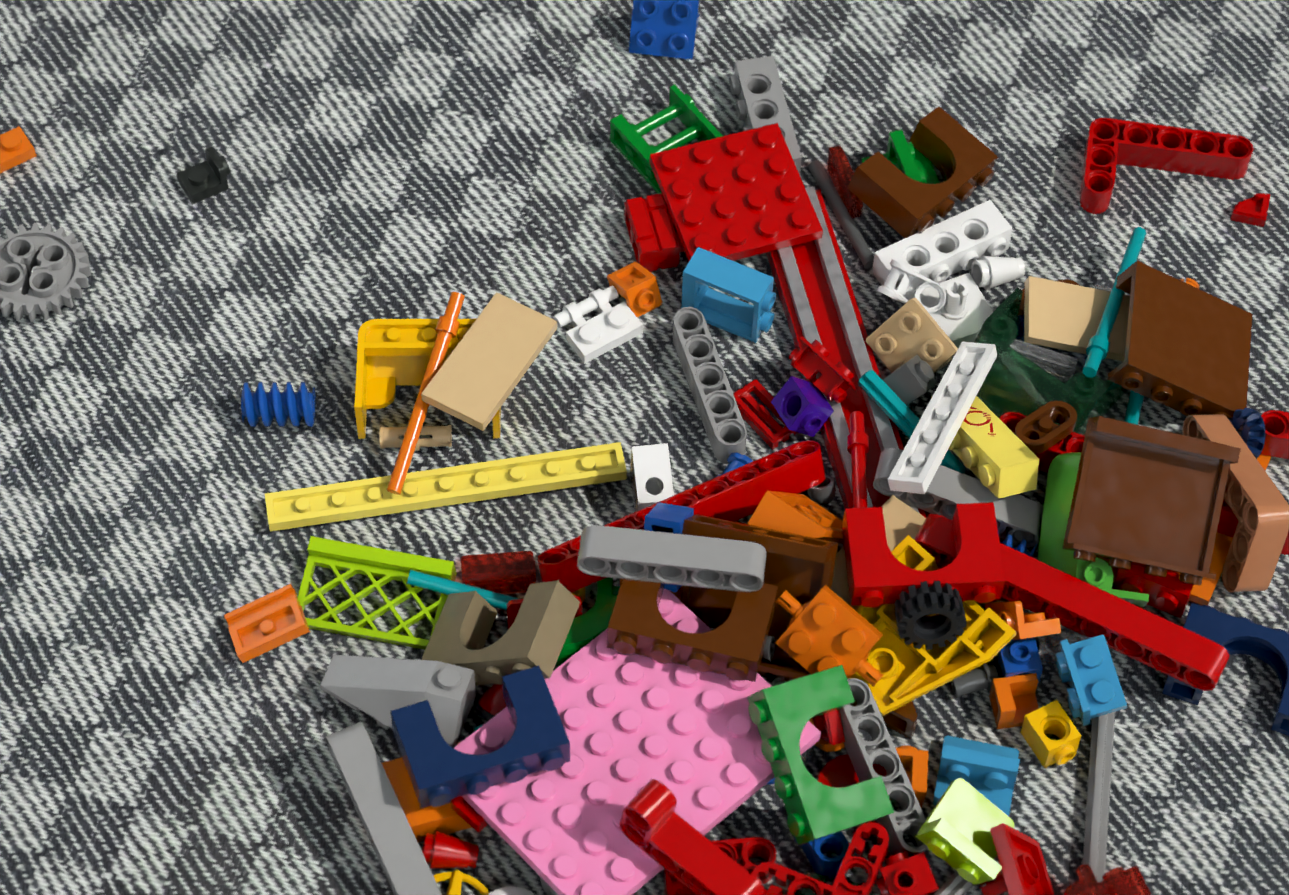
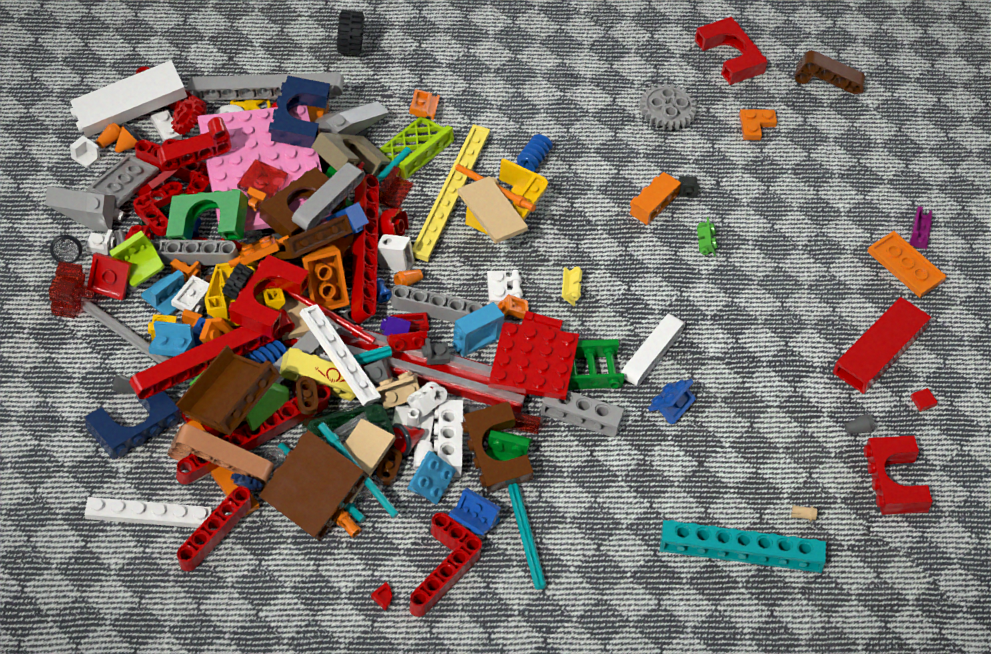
camera: 115 degrees right, 5 degrees down
(172, 817) = (350, 32): none -> black tyre
(266, 204) = (654, 198): none -> orange brick
(292, 113) = (707, 231): none -> bright green hinge
(522, 236) = (571, 287): none -> light yellow hinge
(584, 86) = (653, 349): none -> white beam
(591, 511) = (393, 222): none -> red cylinder
(676, 716) = (263, 178): none -> clear red tile
(684, 453) = (408, 277): none -> orange cone
(731, 690) = (255, 198): none -> orange tile
(816, 322) = (435, 353): none -> dark grey bracket
(960, 724) = (191, 295): none -> white bracket
(993, 285) = (406, 437): none -> red hat
(1032, 90) = (527, 536): none -> teal axle
(1038, 232) = (431, 478): none -> dark azure bracket
(1052, 152) = (475, 512): none -> blue bracket
(1198, 724) = (122, 385): none -> dark grey cone

